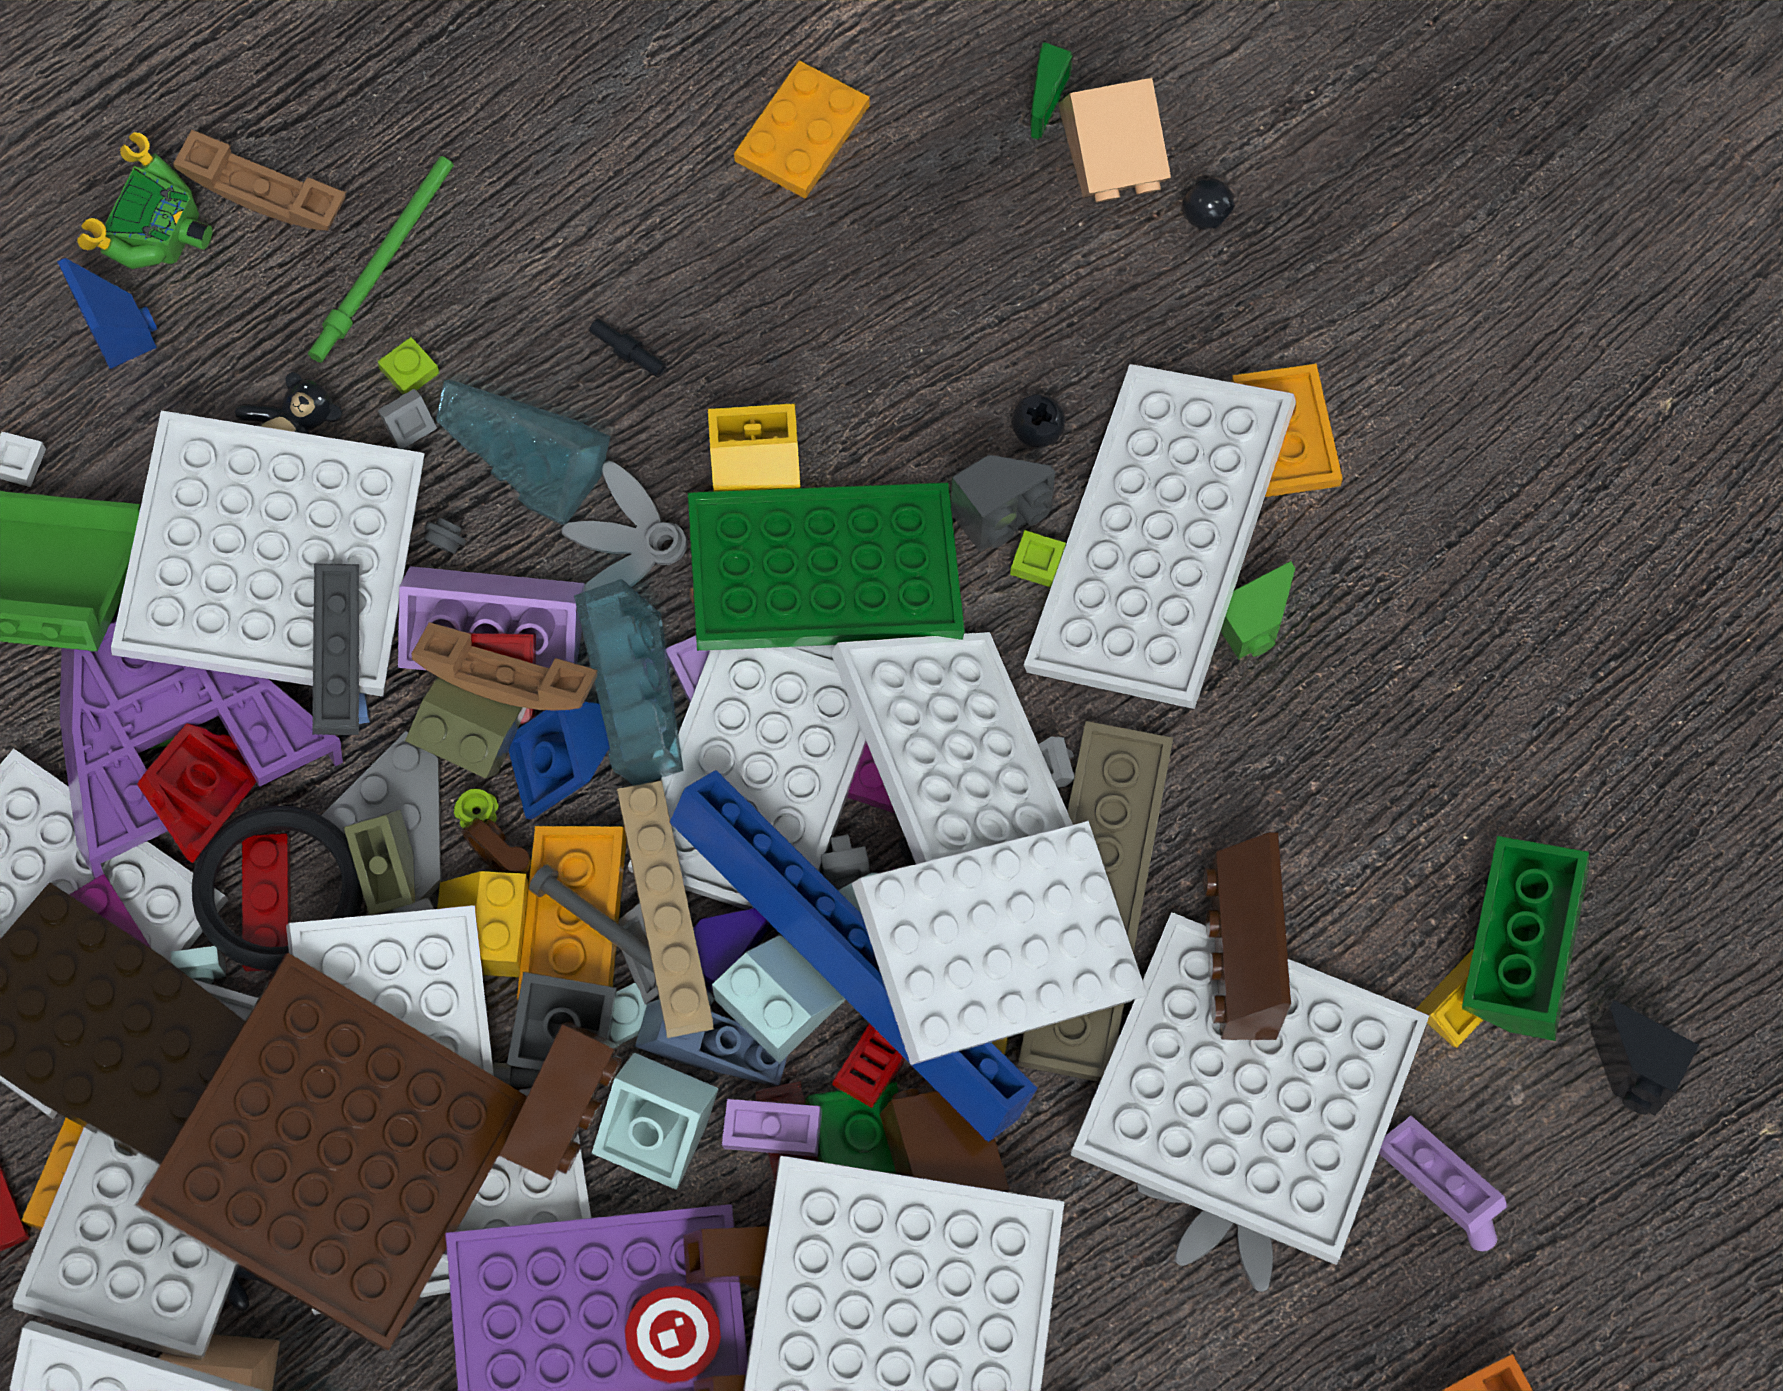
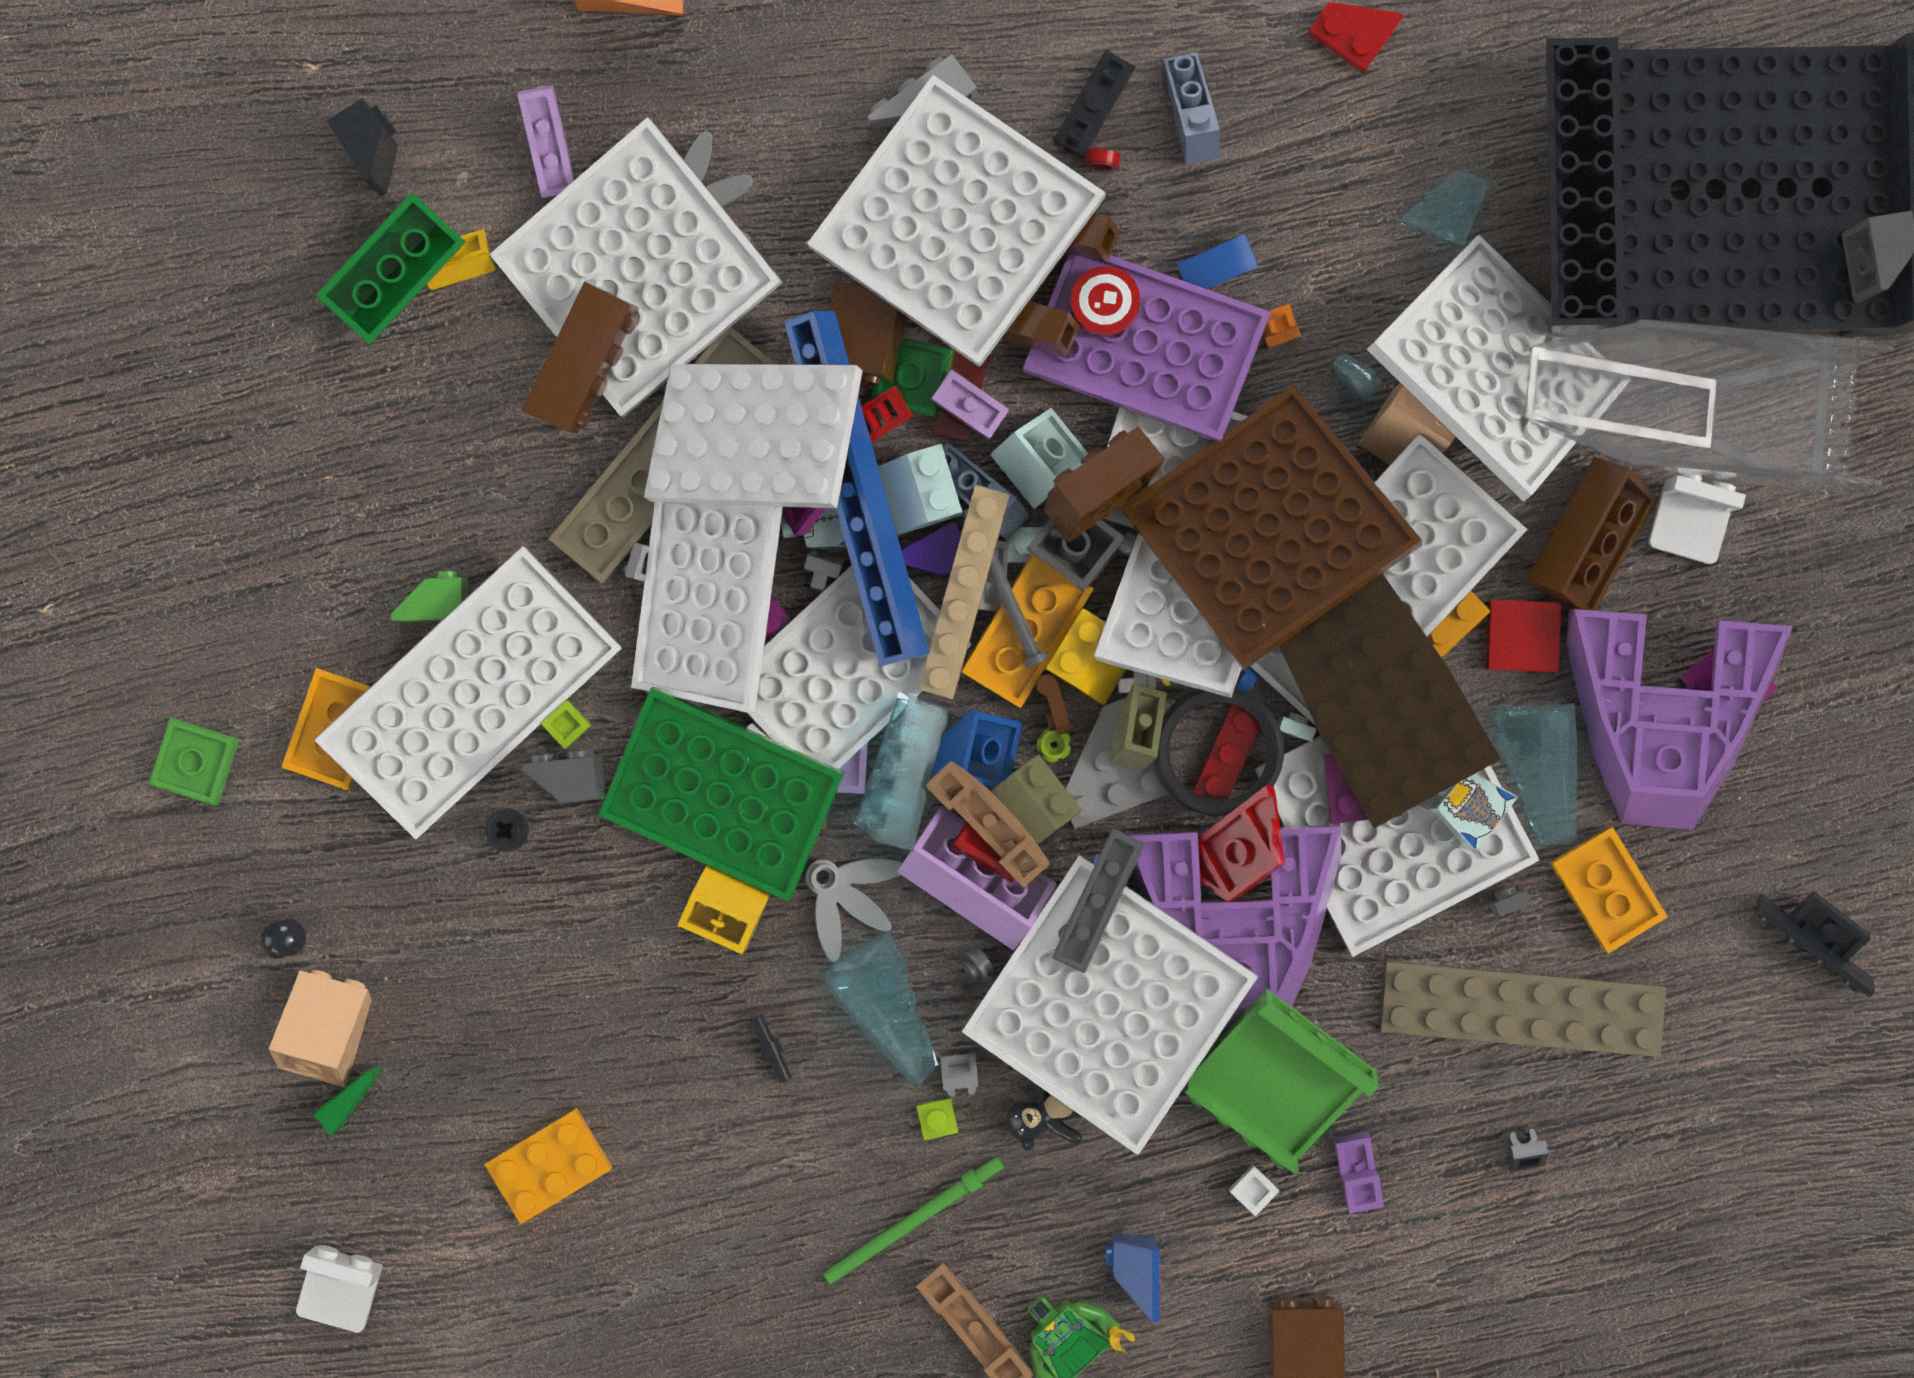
camera: 150 degrees left, 20 degrees up
(1412, 327) = (194, 761): none -> bright green plate

